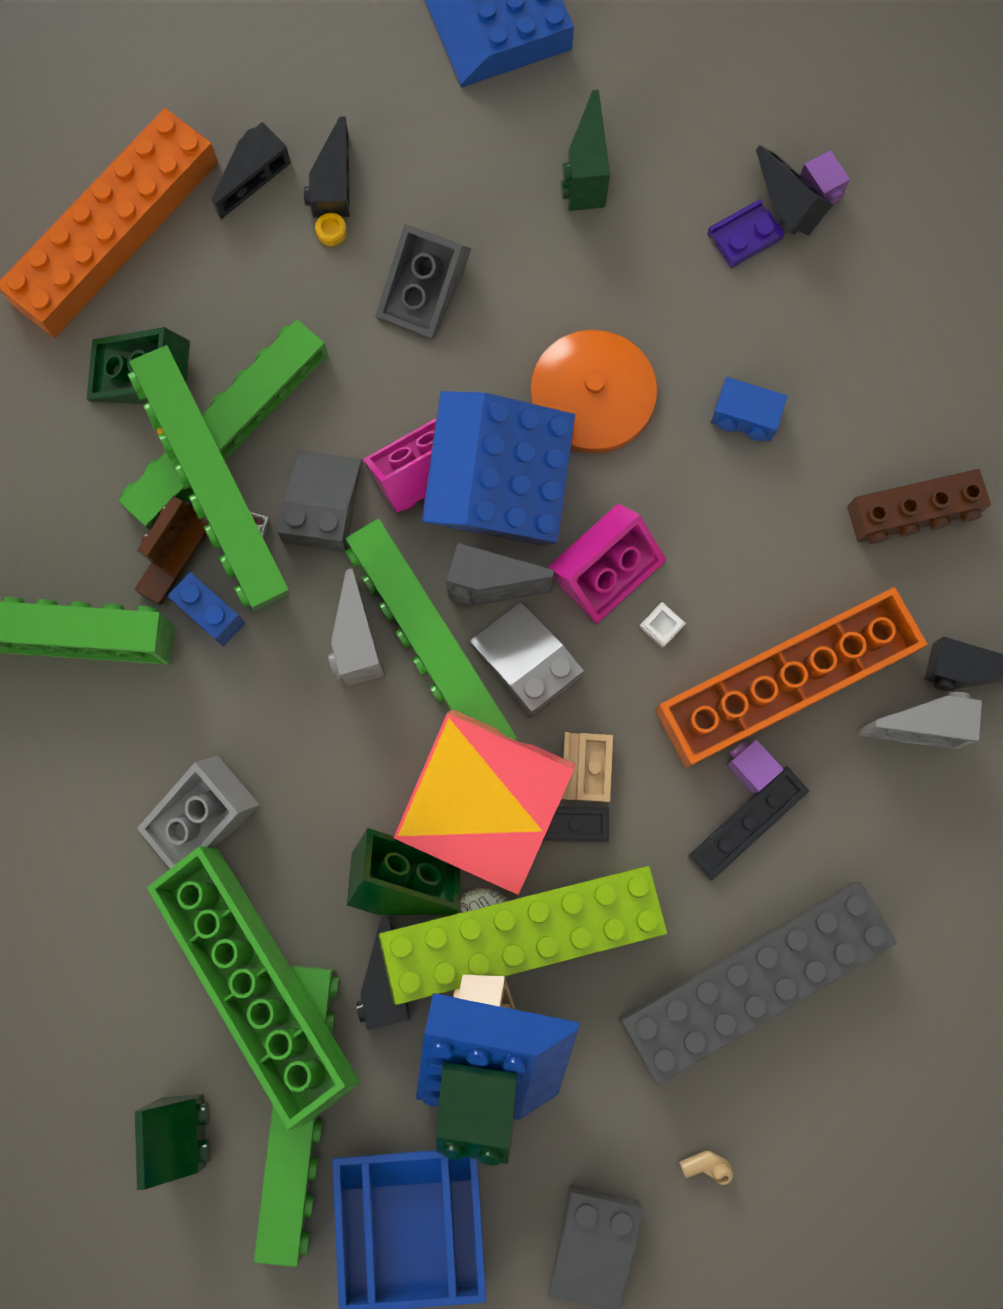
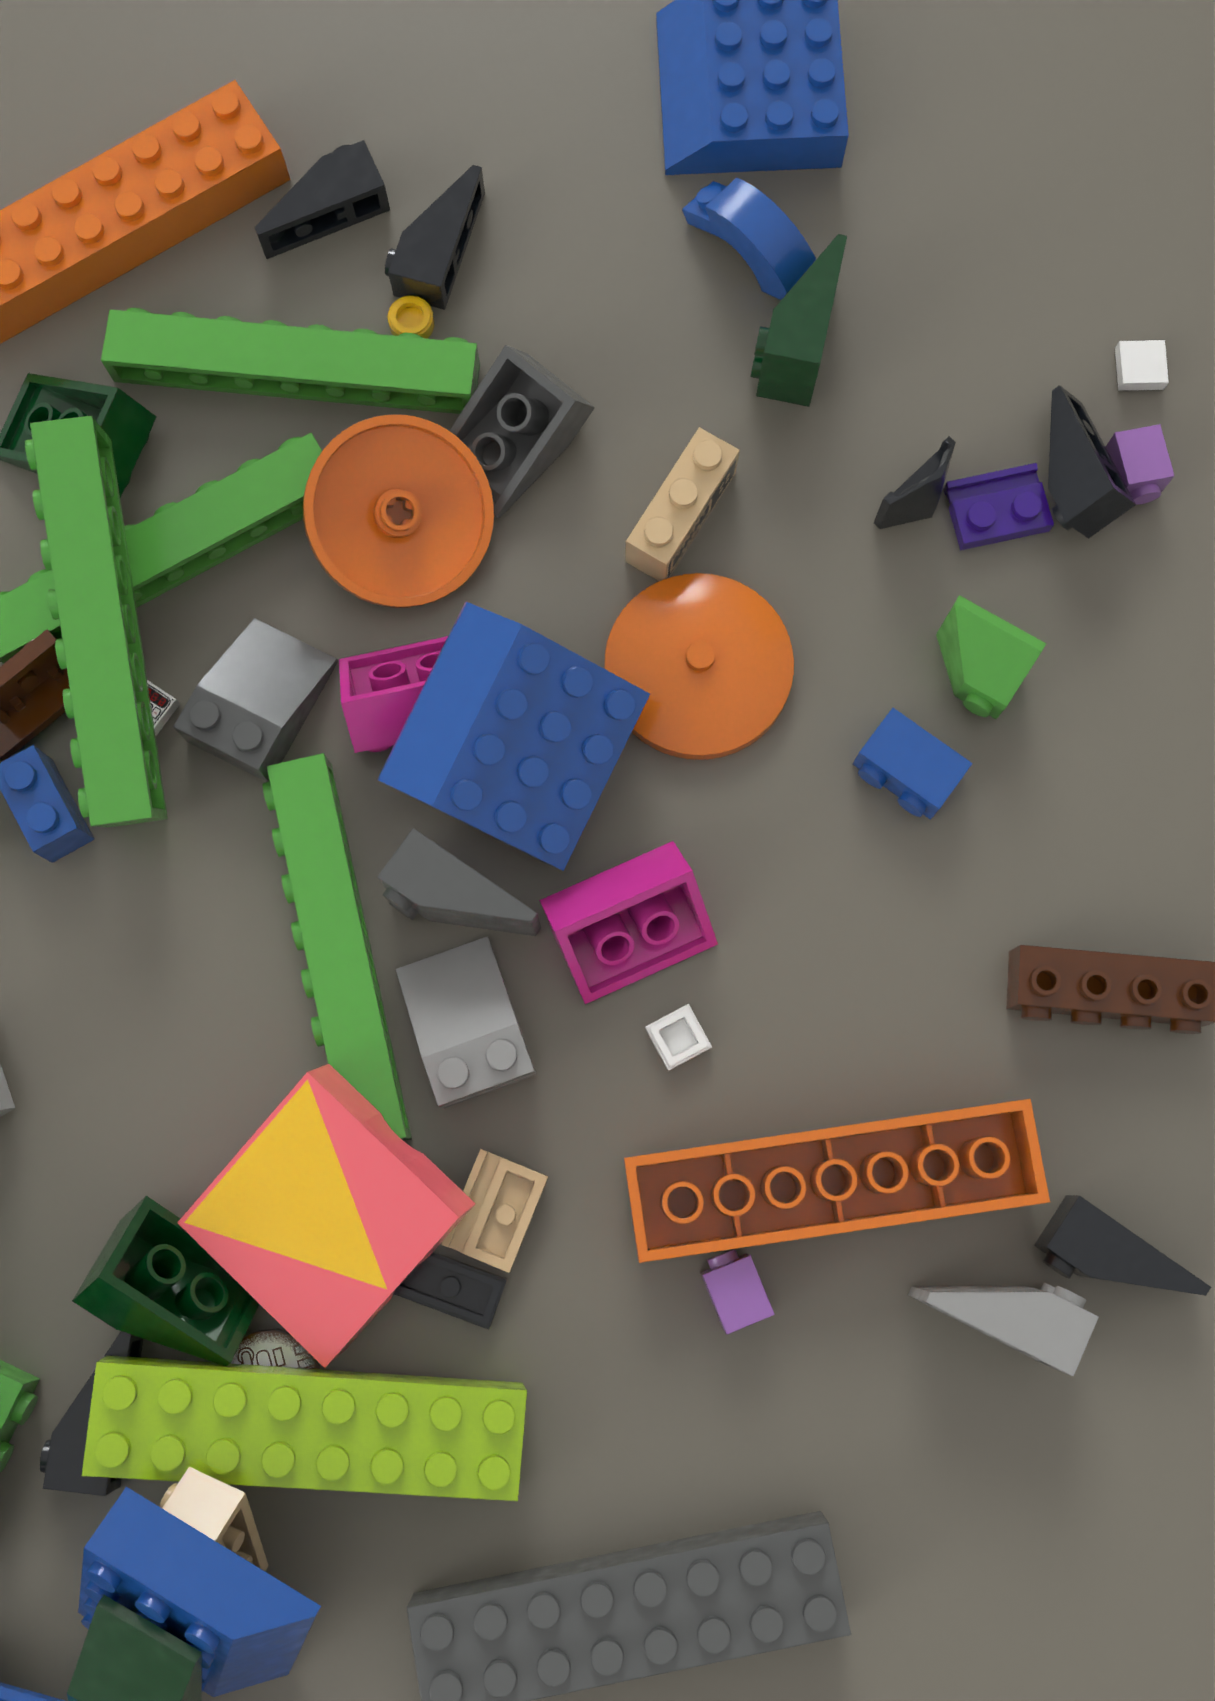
camera: 20 degrees right, 0 degrees up
(264, 278) = (290, 361): none -> bright green brick
(352, 641) = (226, 915): light grey slope -> none
(370, 351) = (398, 511): none -> orange dish
(535, 104) = (755, 230): none -> blue arch
(548, 293) = (681, 505): none -> tan brick
(697, 238) = (919, 493): none -> black slope
(748, 823) = (700, 1372): black tile -> none
(772, 327) = (985, 657): none -> bright green slope
(804, 117) = (1141, 365): none -> white tile

